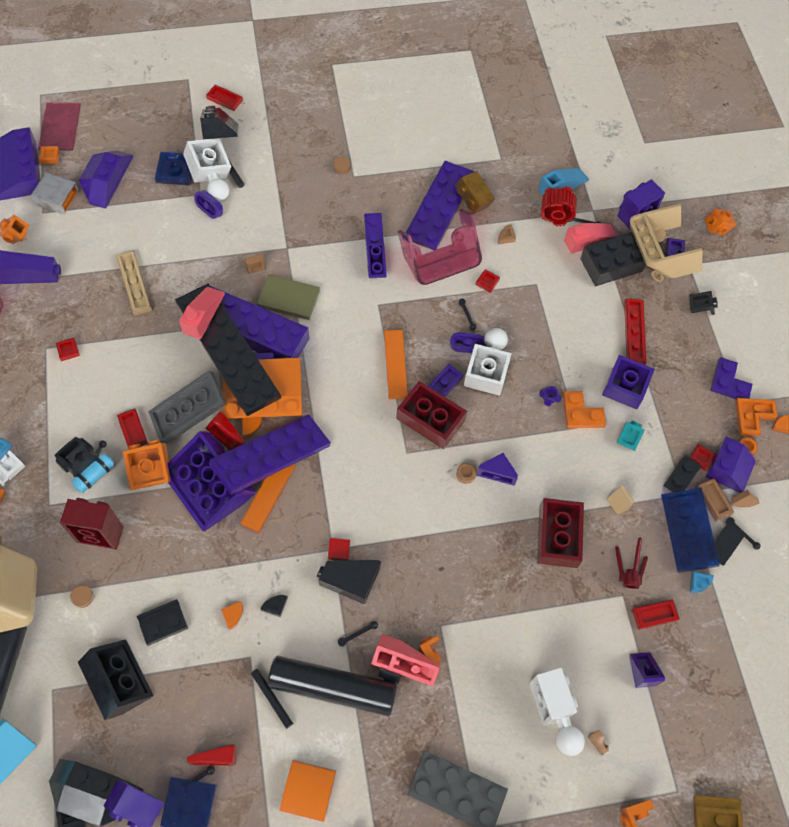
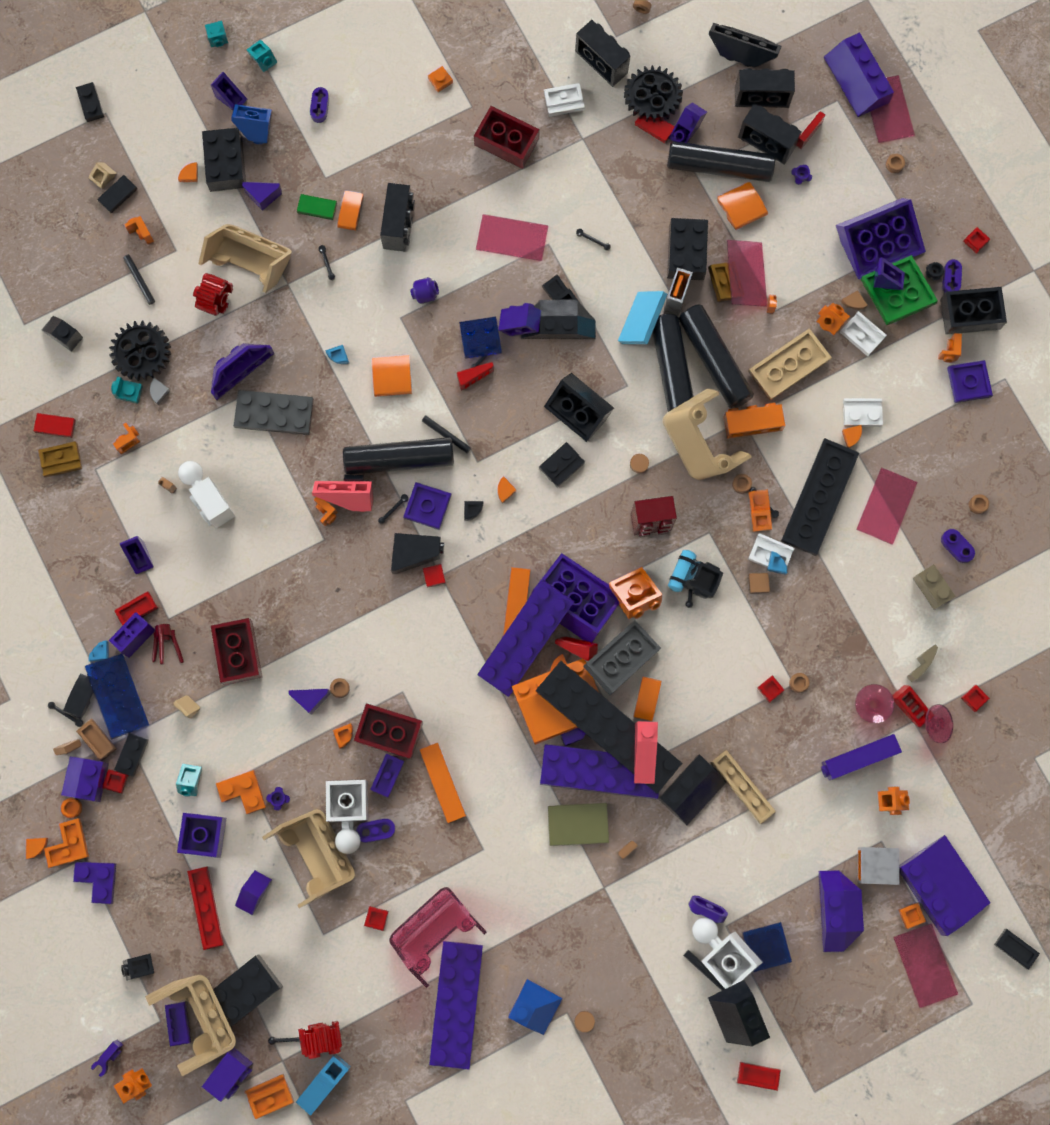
camera: 165 degrees right, 15 degrees up
(27, 441) = (759, 583): none -> medium nougat tile
(39, 346) = (799, 682): none -> medium nougat tile
(132, 428) = (668, 627): red tile -> none
(164, 295) = (692, 789): none -> black slope
(181, 373) = (647, 698): none -> orange slope
(320, 624) = (427, 506): none -> dark purple tile
(375, 245) = (508, 915): dark purple slope -> none
(379, 184) = (534, 1007): none -> blue slope
(462, 302) = (396, 882): black hinge -> none
(474, 192) = (420, 1026): pearl gold brick -> none
(474, 431) = (343, 735): none -> orange tile
(506, 235) = (371, 987): medium nougat tile -> none
(518, 323) = (317, 846): none -> tan windscreen
(587, 234) = (276, 1017): coral slope -> none
(589, 330) = (252, 892): none -> dark purple slope
(608, 187) = (269, 1096): none -> orange plate
(665, 585) = (132, 635): none -> dark purple hinge
(735, 250) = (110, 1053): none -> dark purple plate

